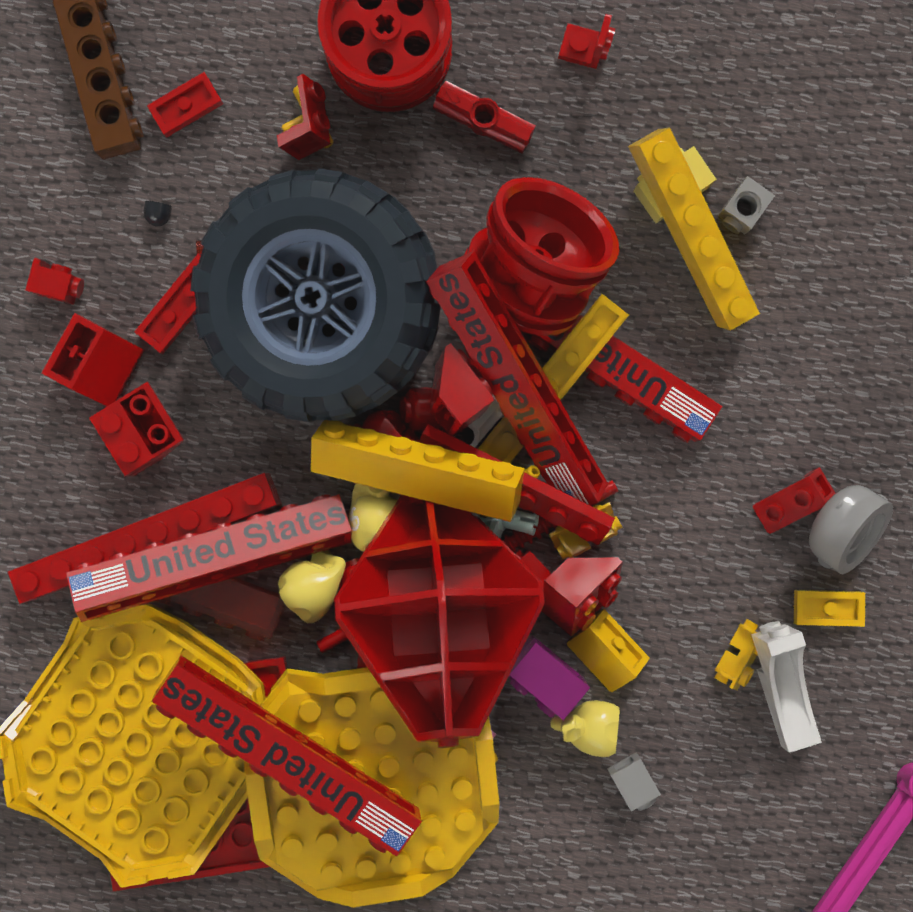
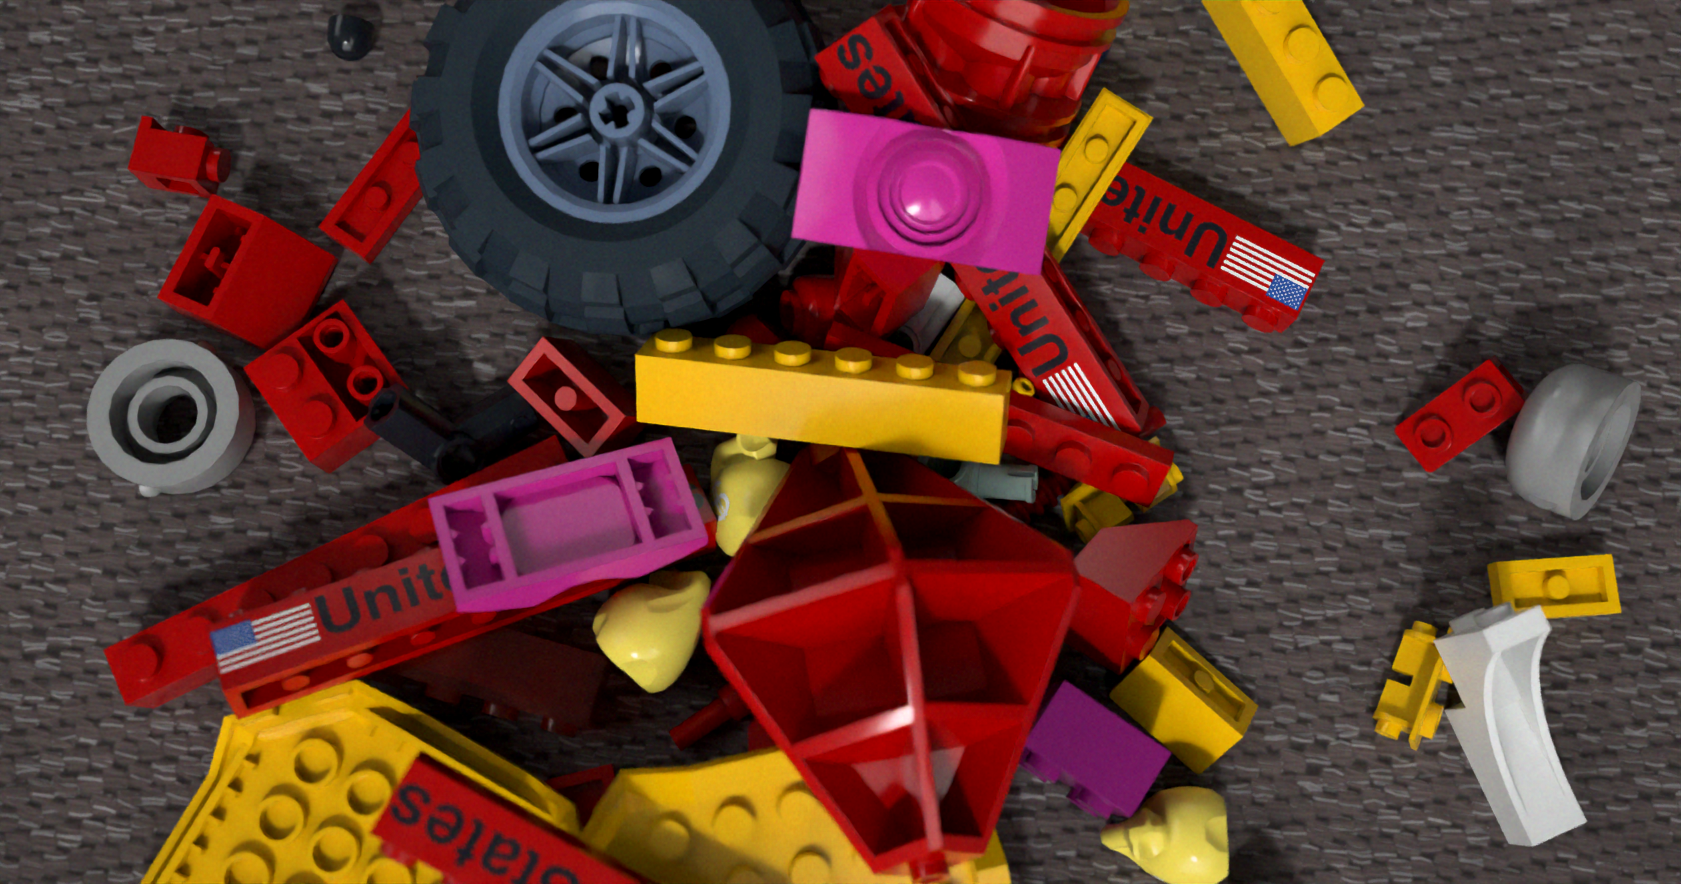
camera: 20 degrees left, 10 degrees down
(21, 436) = (135, 392): none -> light grey piece
(204, 469) = (427, 433): none -> black piece
(267, 531) = (567, 526): none -> dark pink slope
(278, 449) = (577, 397): none -> red brick
(482, 368) = (925, 191): none -> dark pink slope

